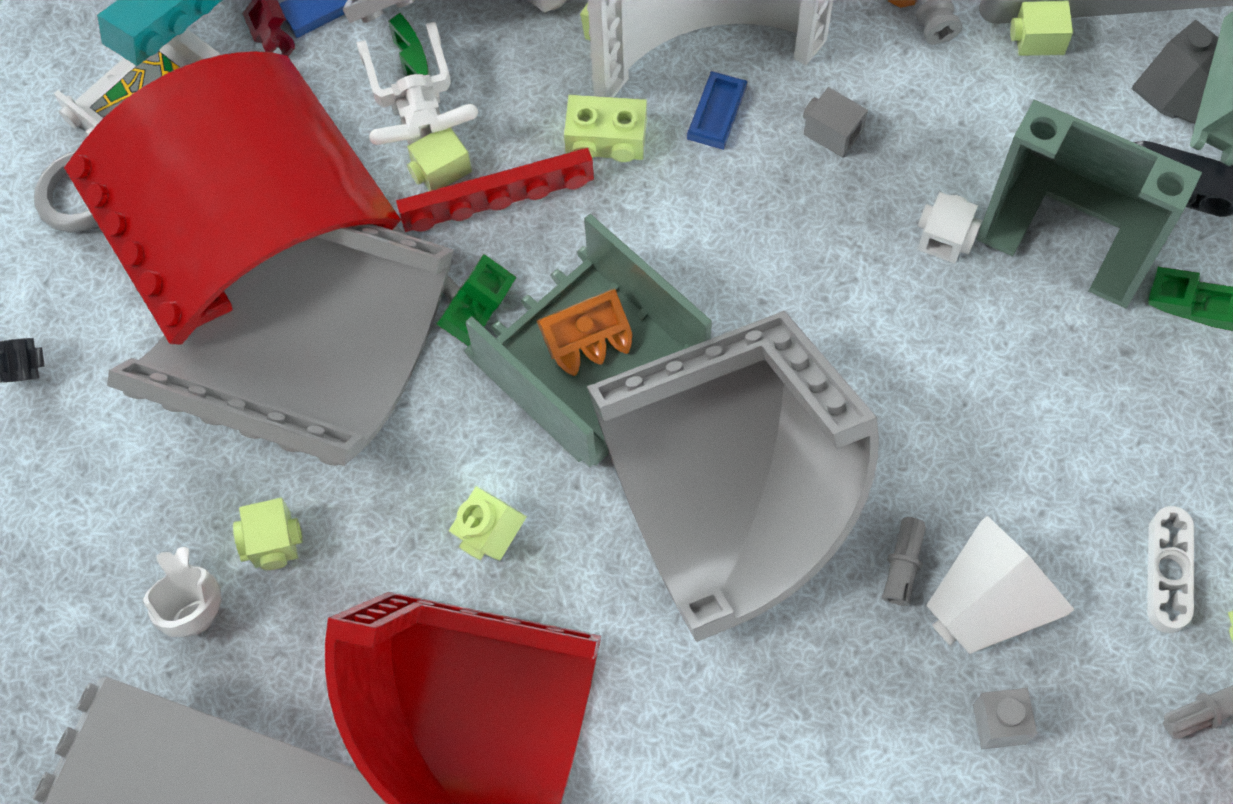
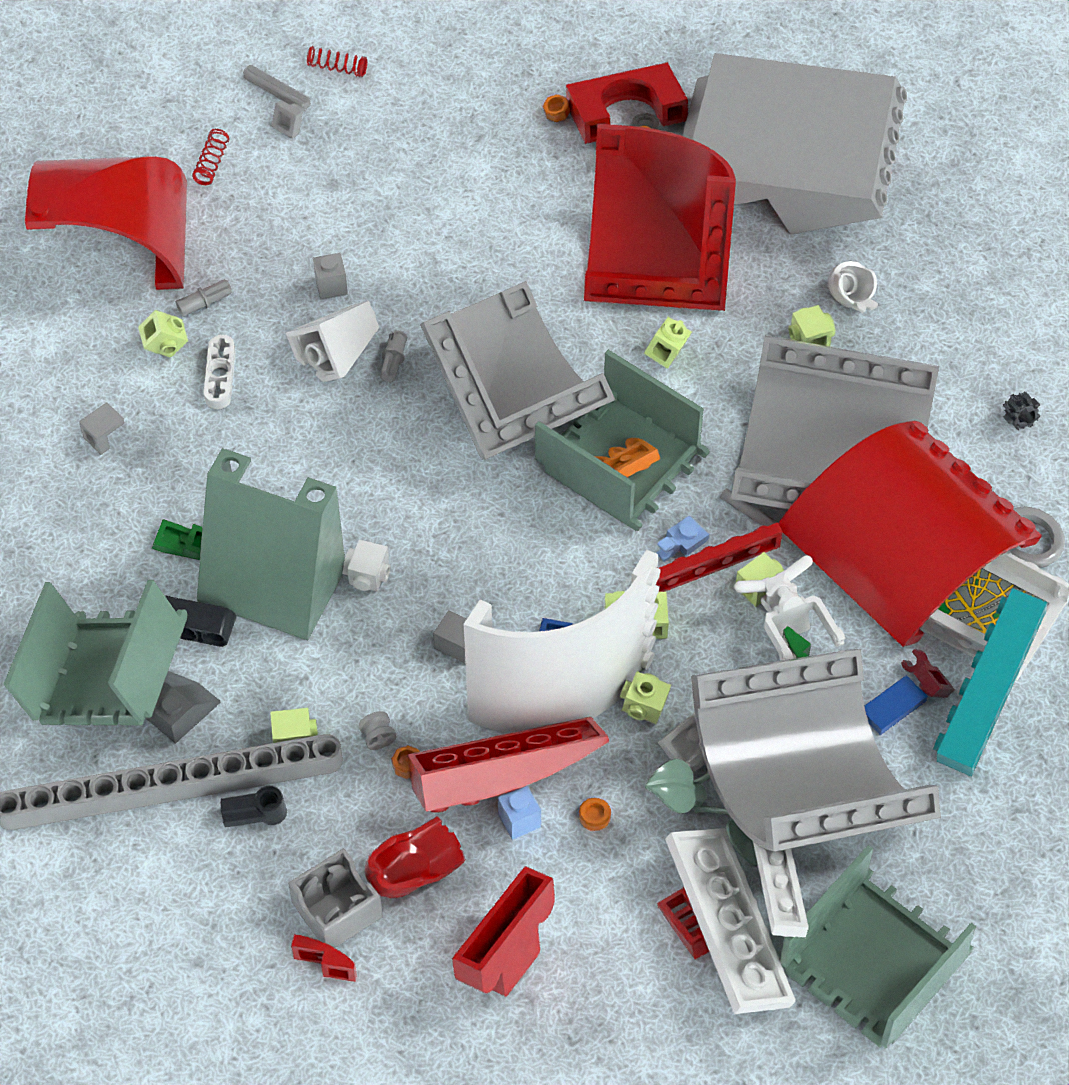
camera: 170 degrees right, 10 degrees down
(476, 297) = (710, 484): green slope -> none
(524, 236) = (682, 537): none -> light blue plate

